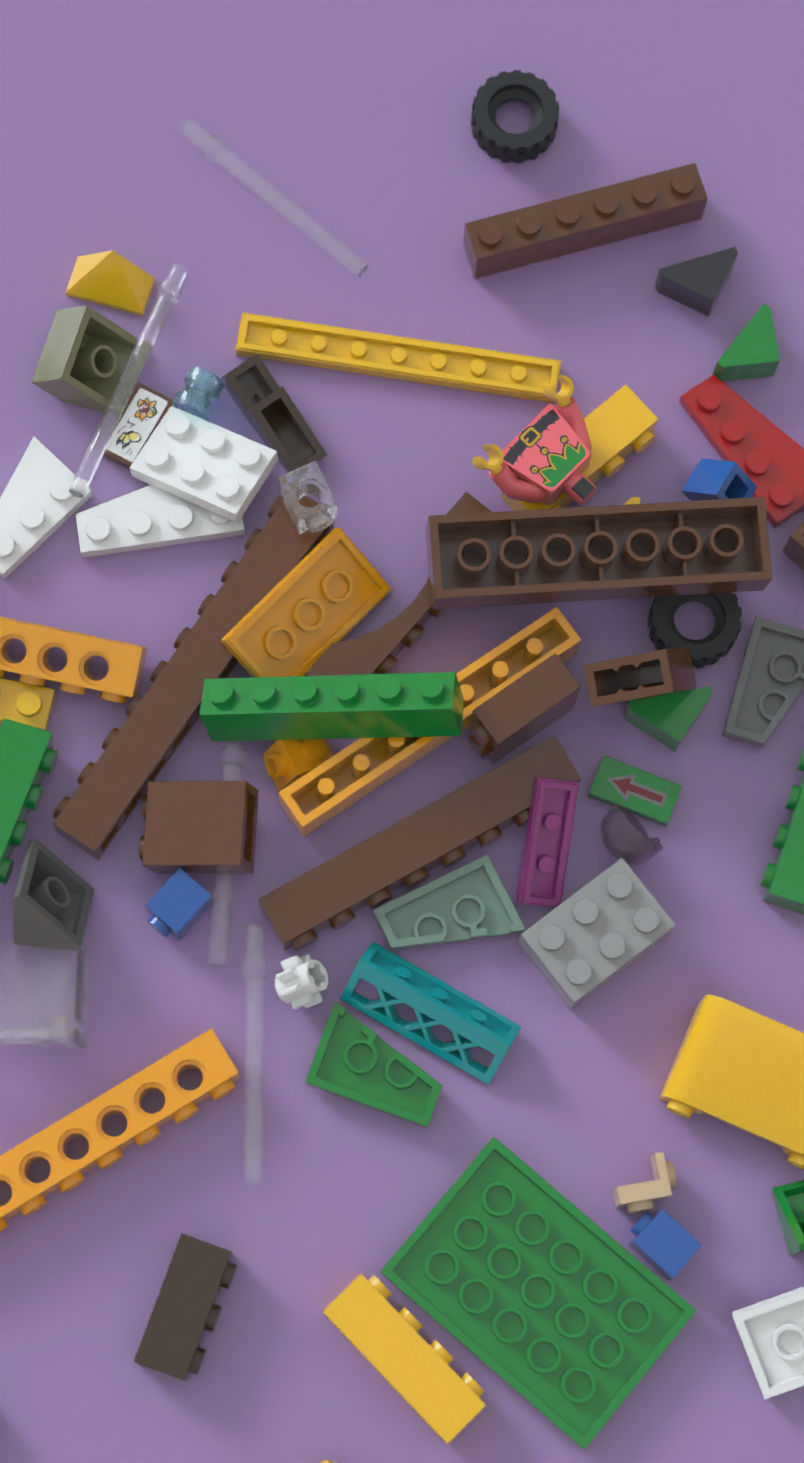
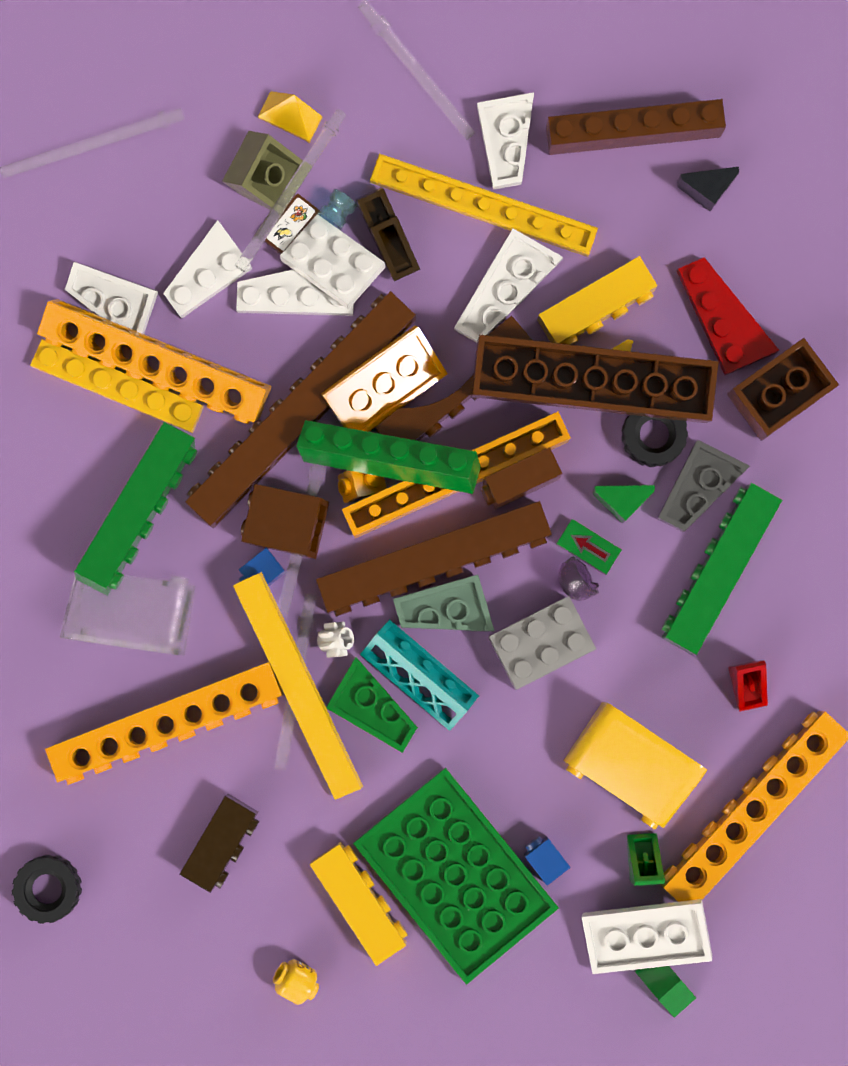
camera: 15 degrees right, 10 degrees up
(49, 902) = (174, 556): dark grey slope -> none
(260, 1057) = (298, 685): none -> yellow tile
(302, 482) = (394, 291): clear brick -> none
(411, 263) = (505, 137): none -> white wing
(443, 463) = (508, 281): none -> white wing
(519, 87) = (606, 16): black tyre -> none
(545, 454) = (571, 300): torso -> none
(547, 842) = (520, 573): magenta tile -> none
(640, 676) = (606, 472): reddish brown brick -> none
(640, 1196) = (538, 824): tan bracket -> none
(718, 480) = (690, 341): blue brick -> none
(752, 352) = (735, 245): green slope -> none

